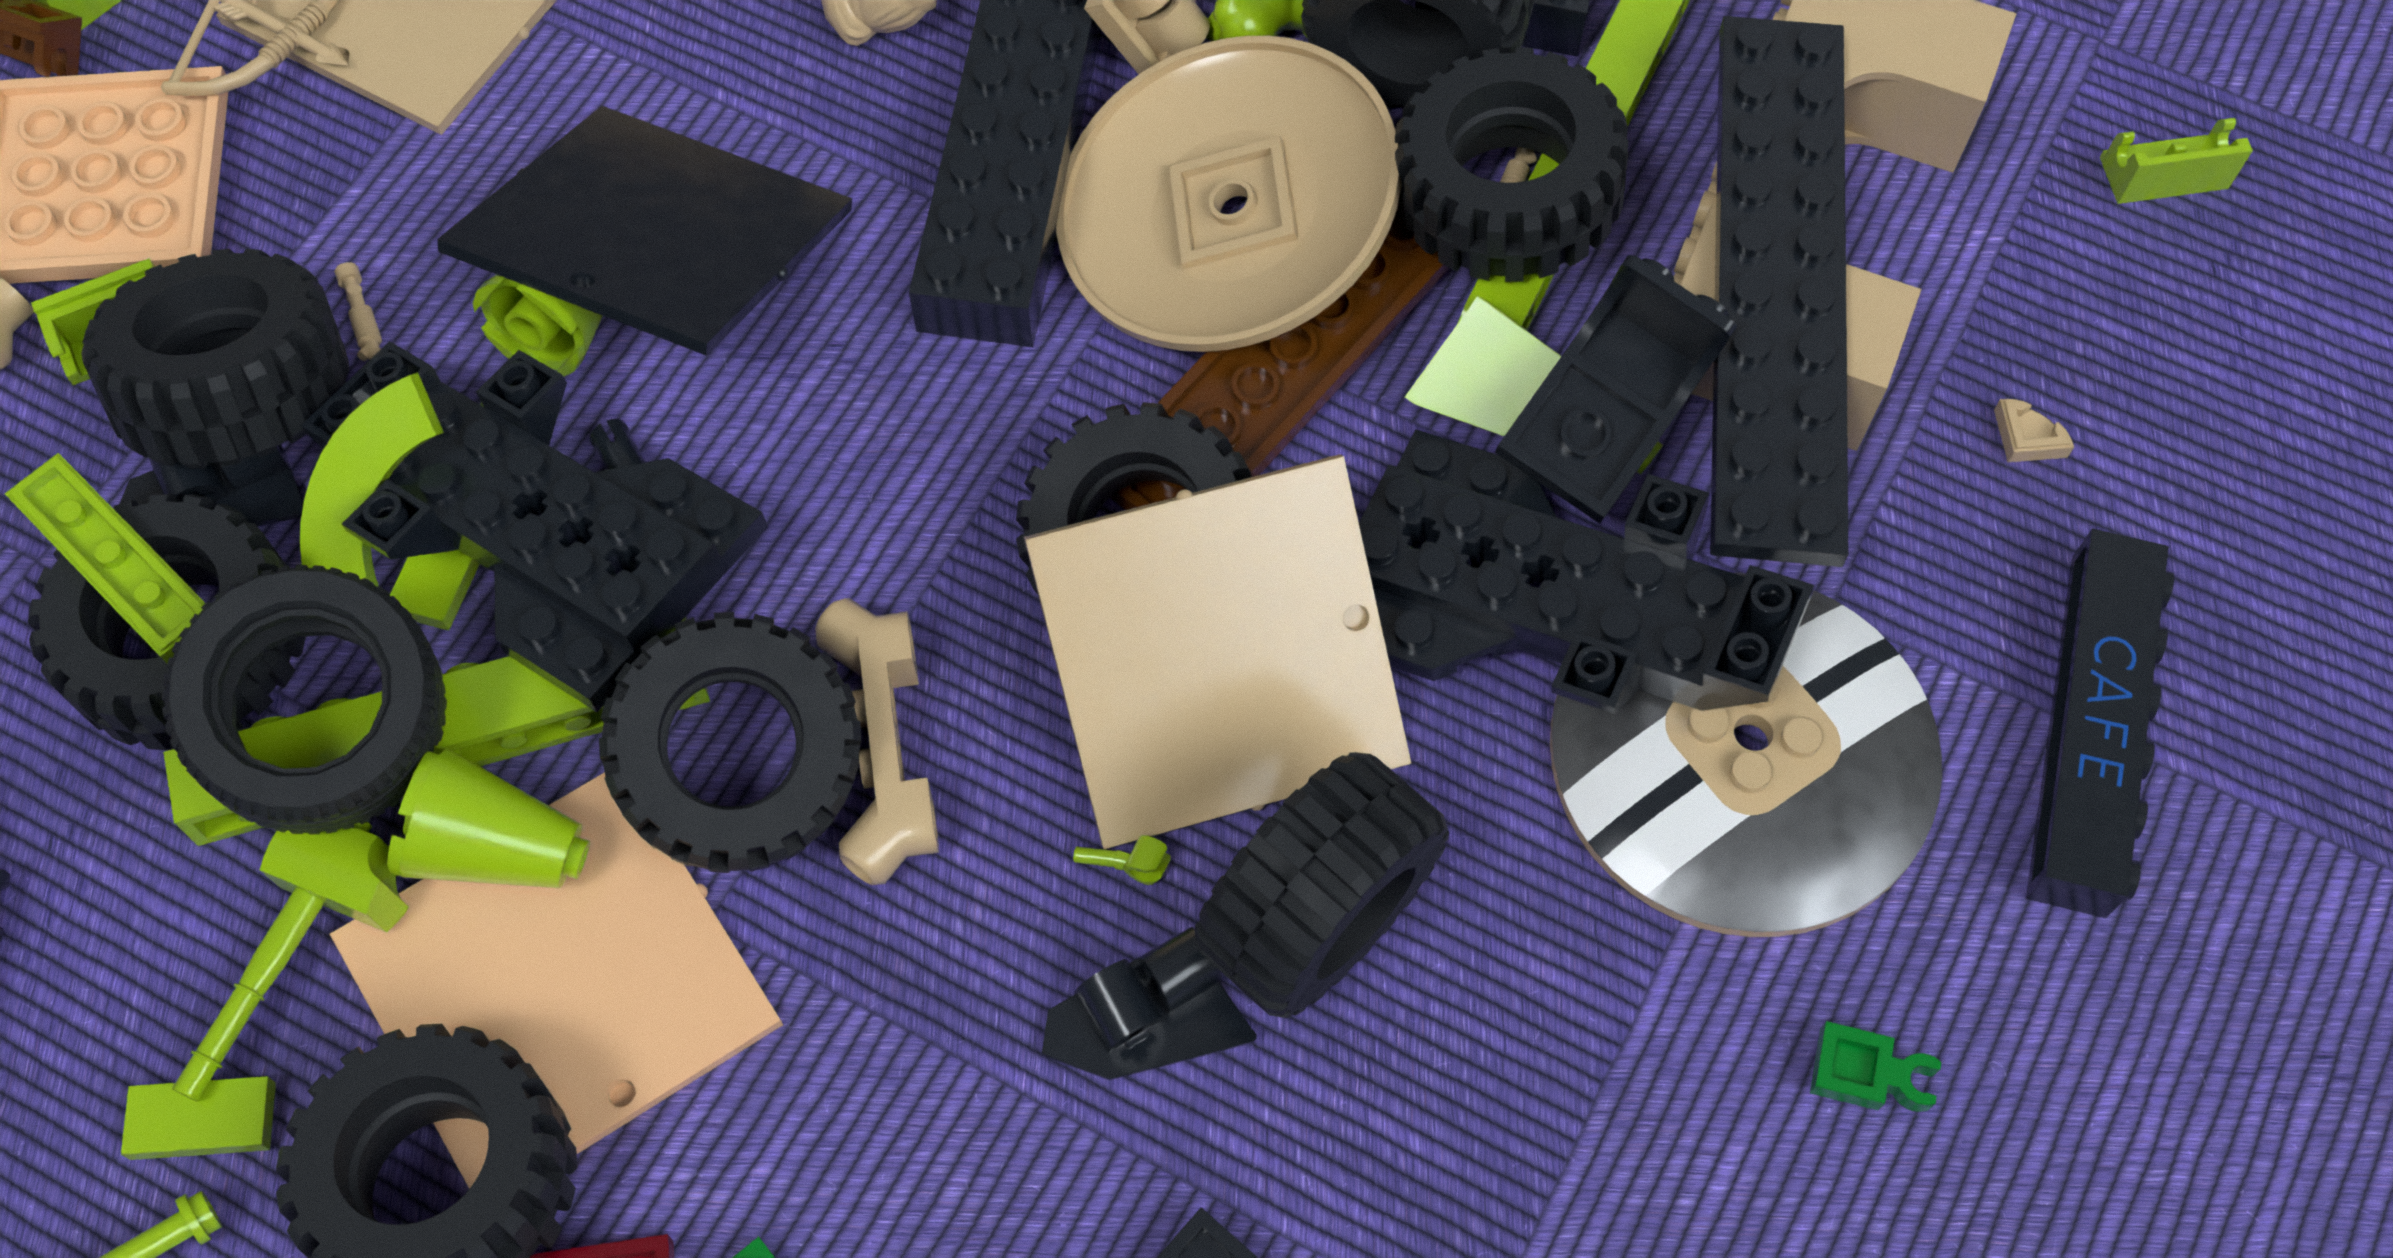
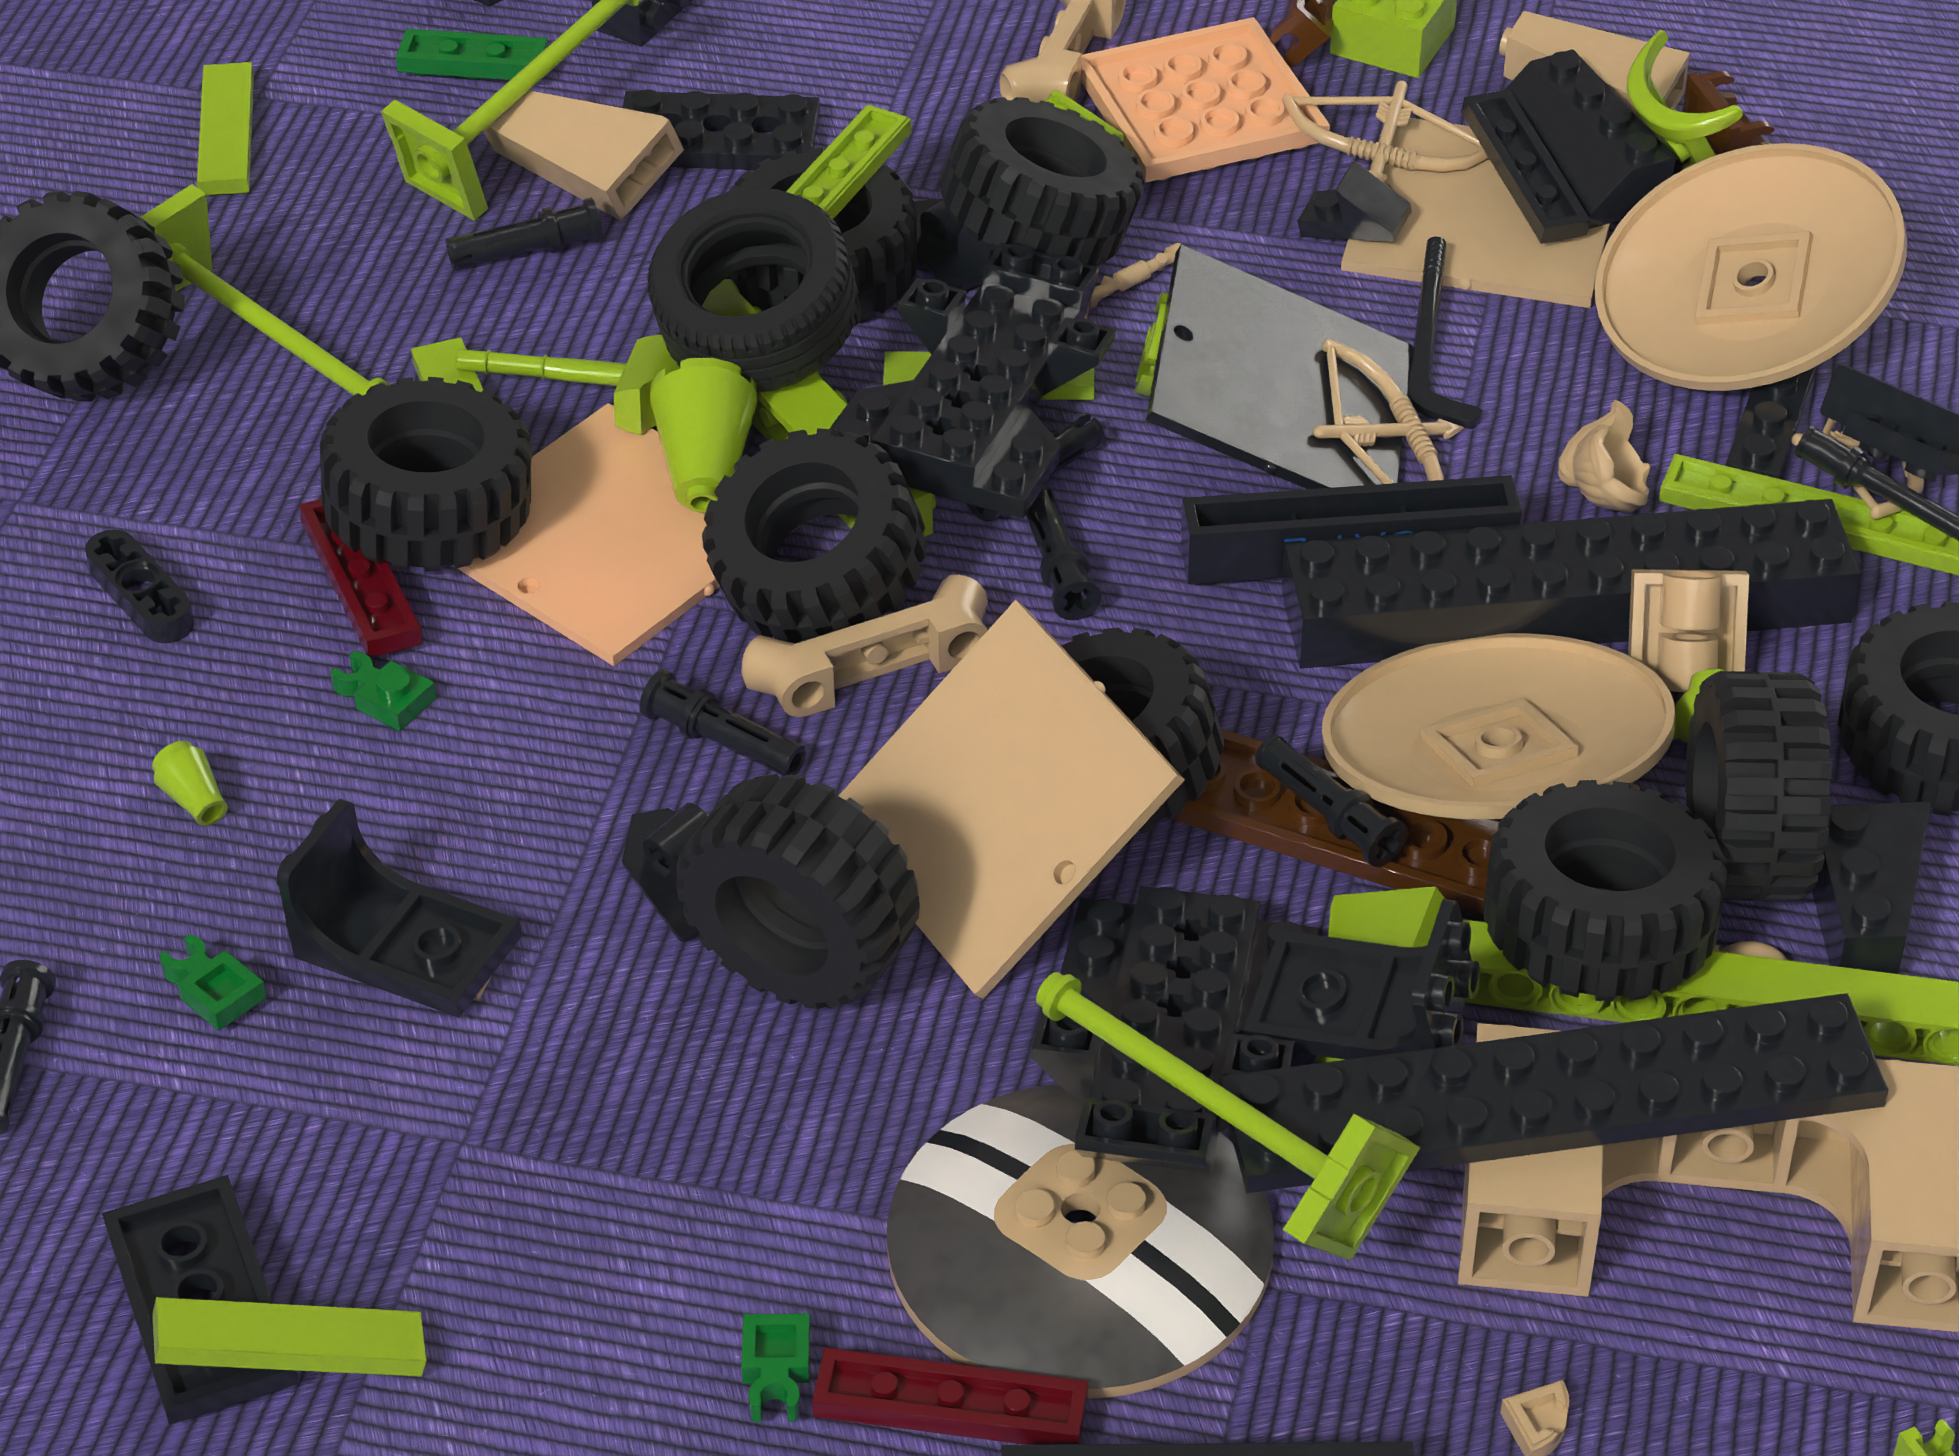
camera: 75 degrees right, 20 degrees down
(354, 465) = (981, 270): lime tile -> none
(385, 84) = (1356, 210): none -> black slope
(684, 121) = (1419, 390): none -> black piece
(738, 184) = (1357, 431): none -> tan piece
(826, 515) = (1062, 565): none -> black pin
(884, 241) = (1246, 533): none -> black brick
(913, 938) = (701, 715): none -> black pin
(1304, 352) = (1347, 813): none -> black pin
(1905, 474) = (1347, 1184): none -> lime tile
(1941, 918) = (949, 1398): none -> dark red plate

